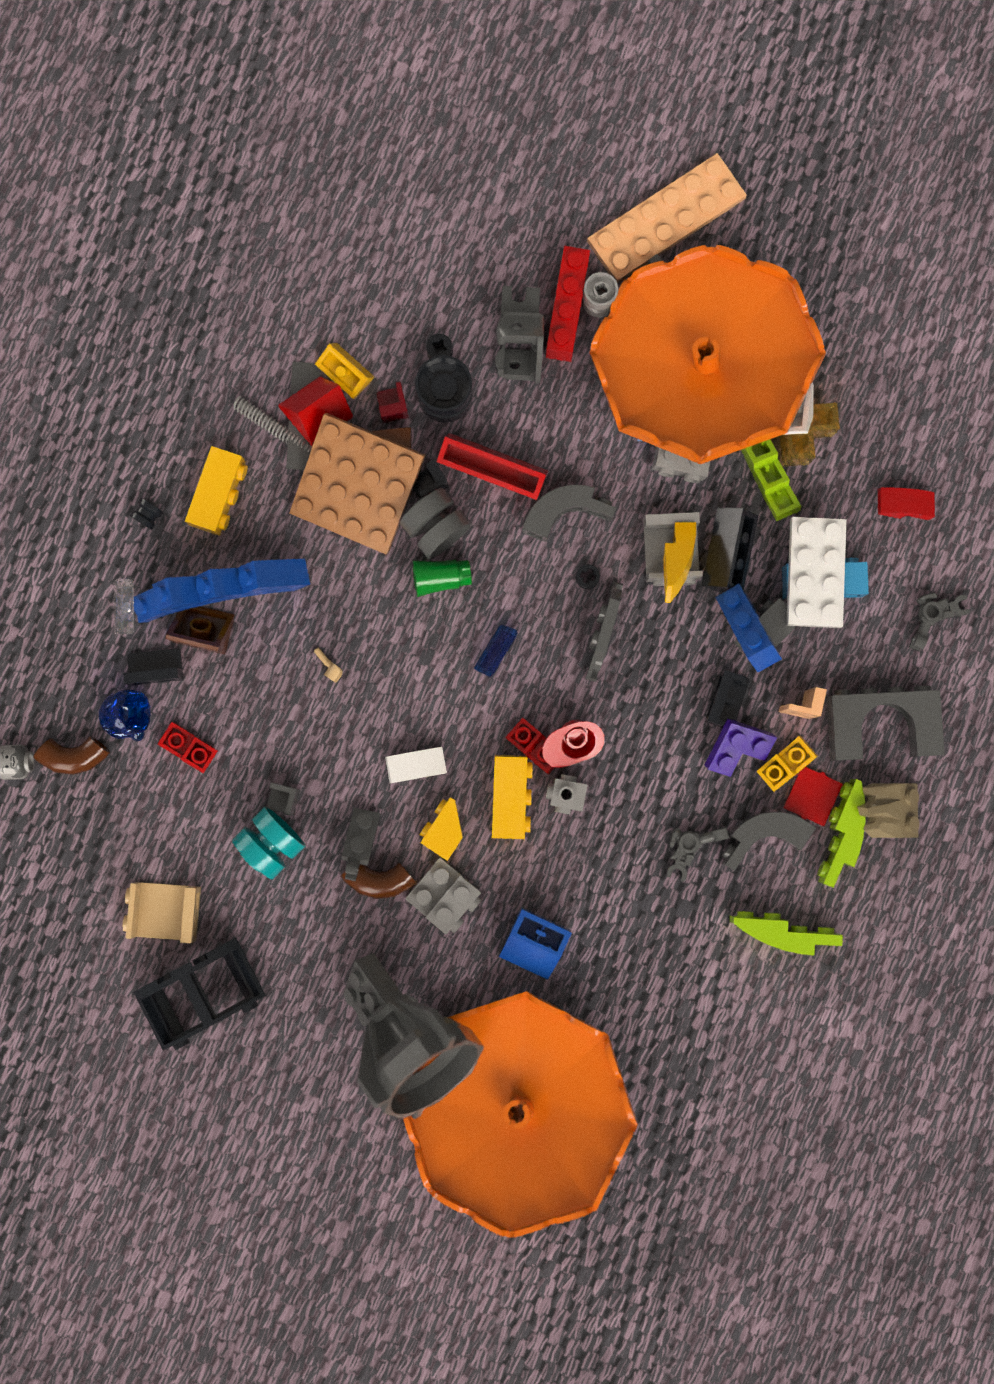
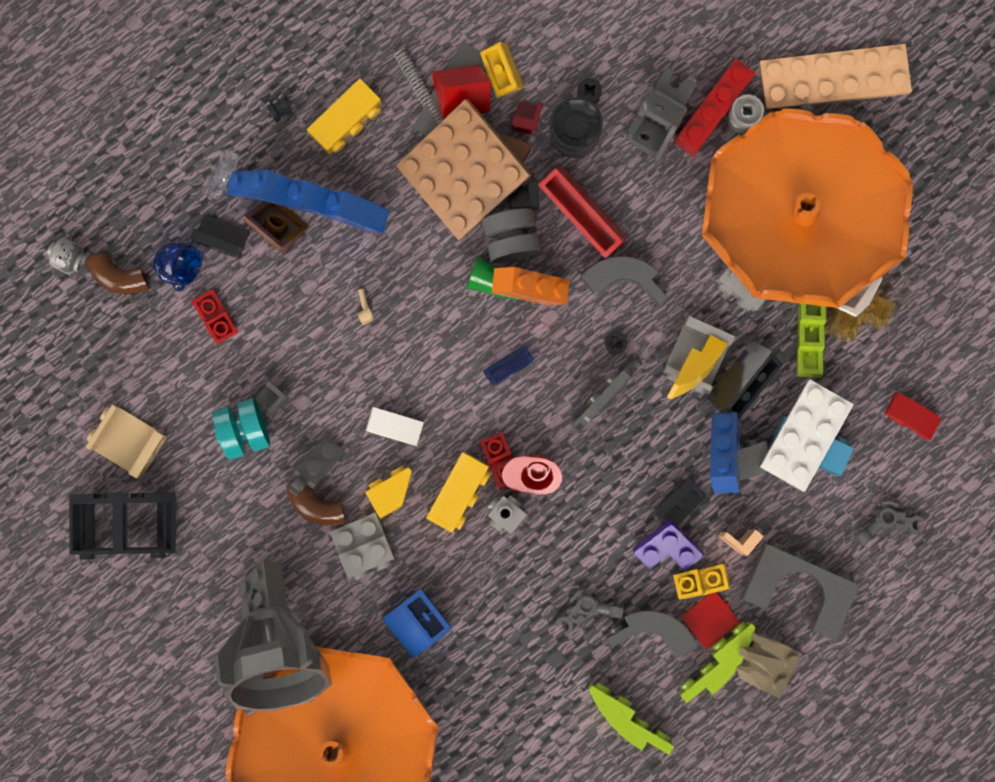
camera: 25 degrees right, 0 degrees up
(478, 562) = (530, 286): none -> orange brick

